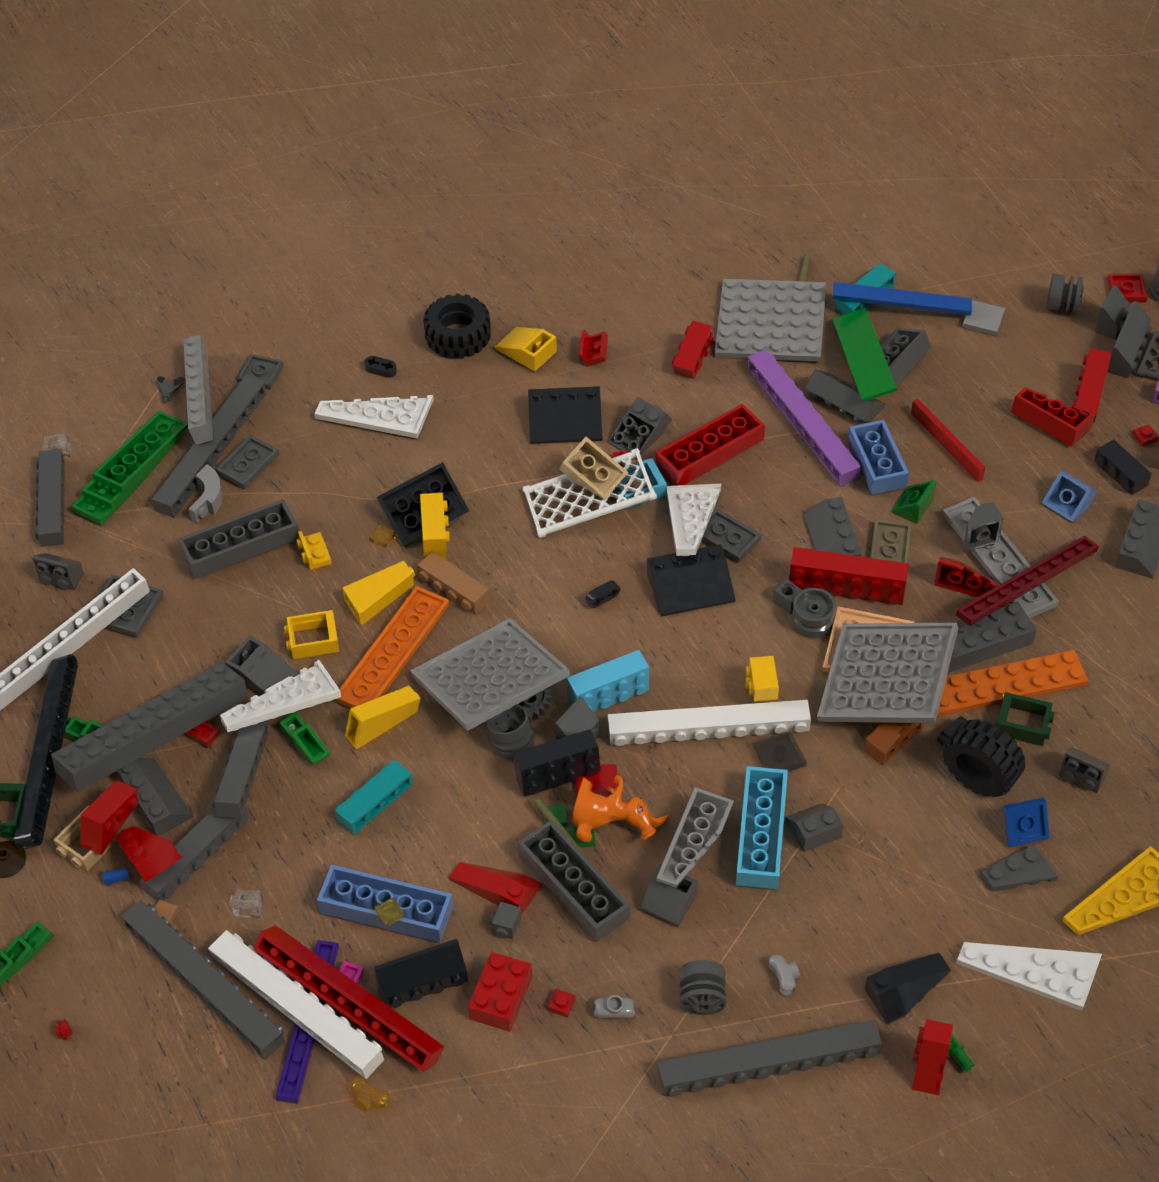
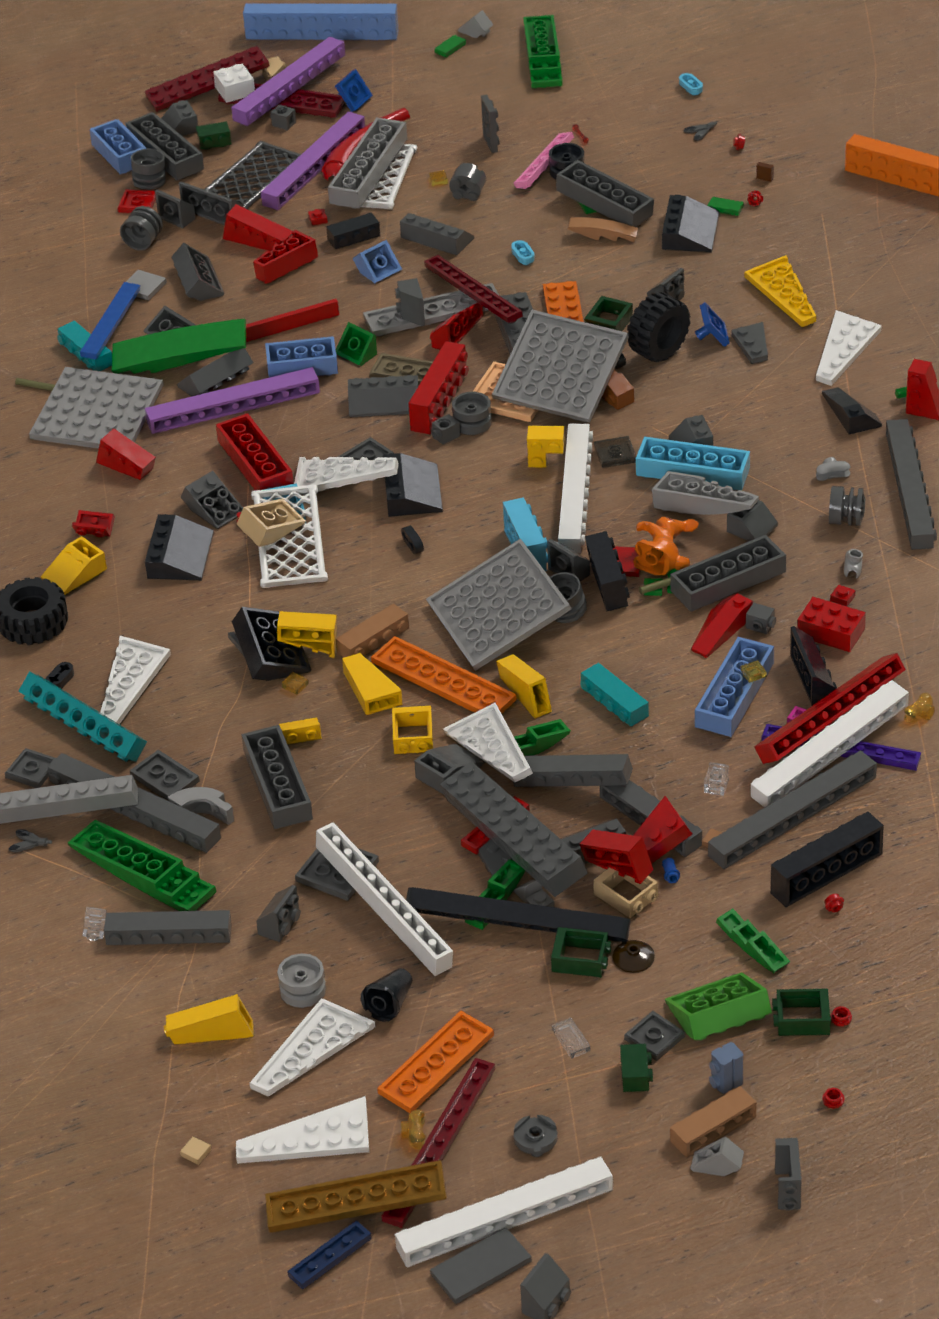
camera: 80 degrees left, 10 degrees down
(114, 1012) = (826, 859): none -> black brick
(317, 389) = (92, 722): none -> teal brick
(1008, 354) = (196, 273): none -> dark grey slope
(1128, 624) = (522, 252): none -> medium azure plate

